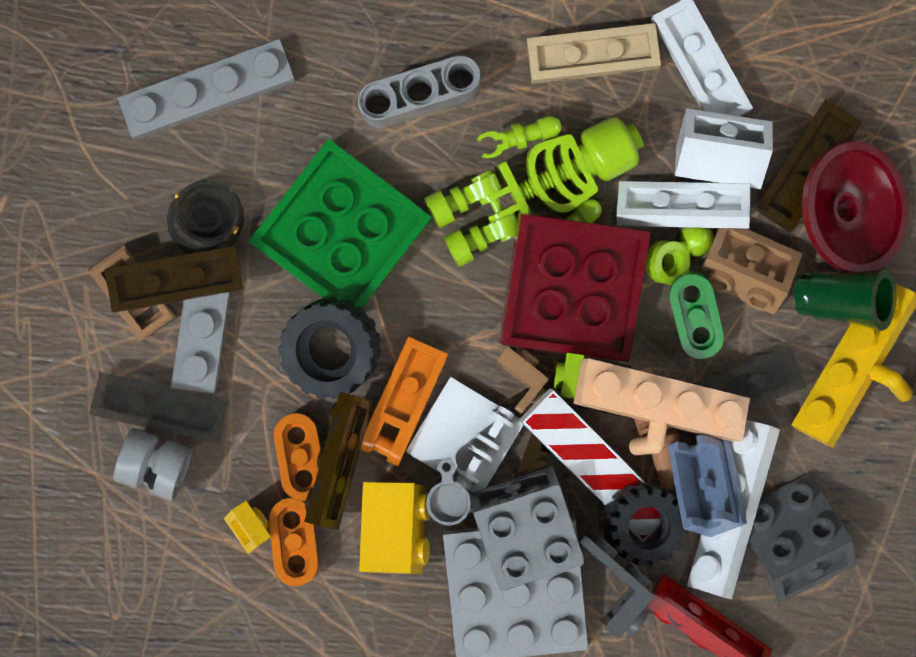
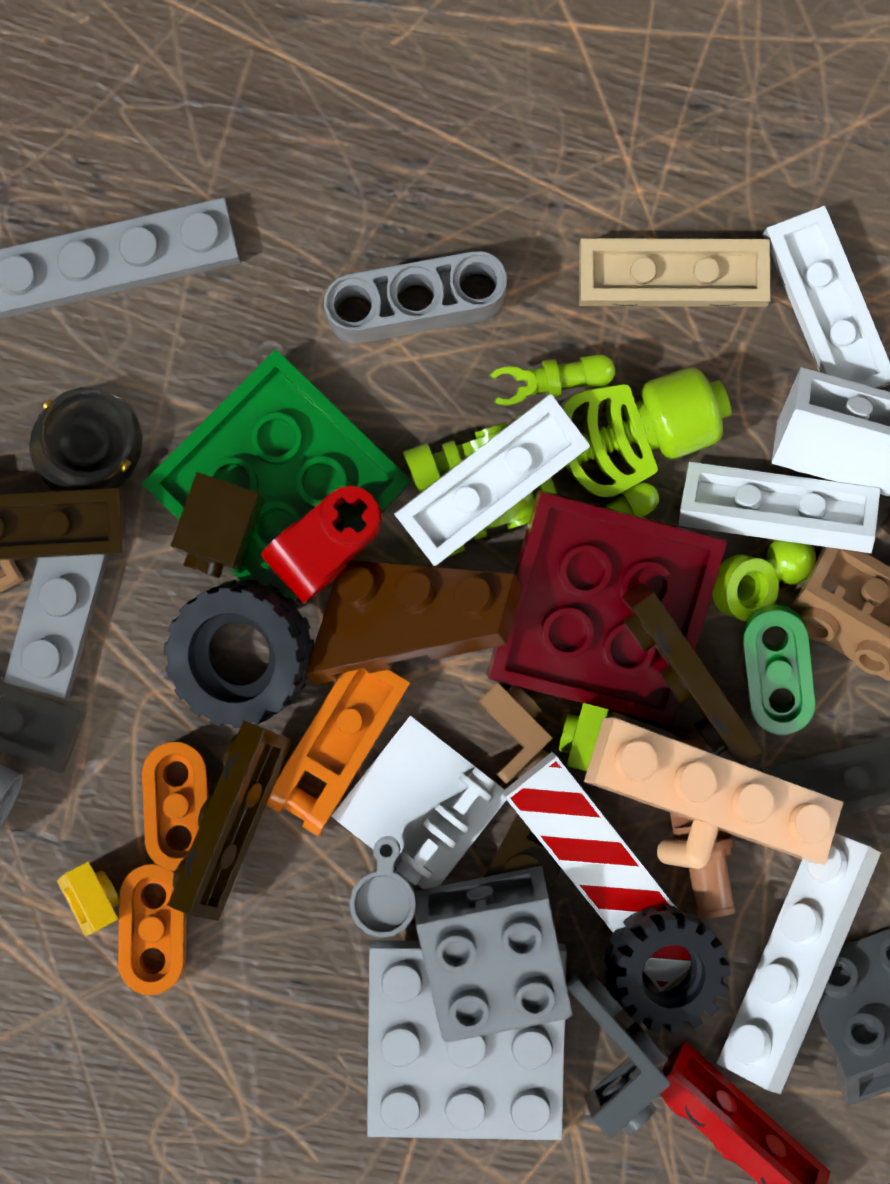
camera: 10 degrees right, 0 degrees up
(304, 263) = (216, 525): none -> dark brown brick
(372, 271) = (314, 550): none -> red piece
(393, 528) = (298, 930): yellow brick -> none
(440, 305) = (408, 612): none -> reddish brown wing
(487, 209) = (492, 479): none -> white plate
(634, 325) = (688, 676): none -> dark brown plate
(707, 486) = (765, 924): sand blue hinge -> none

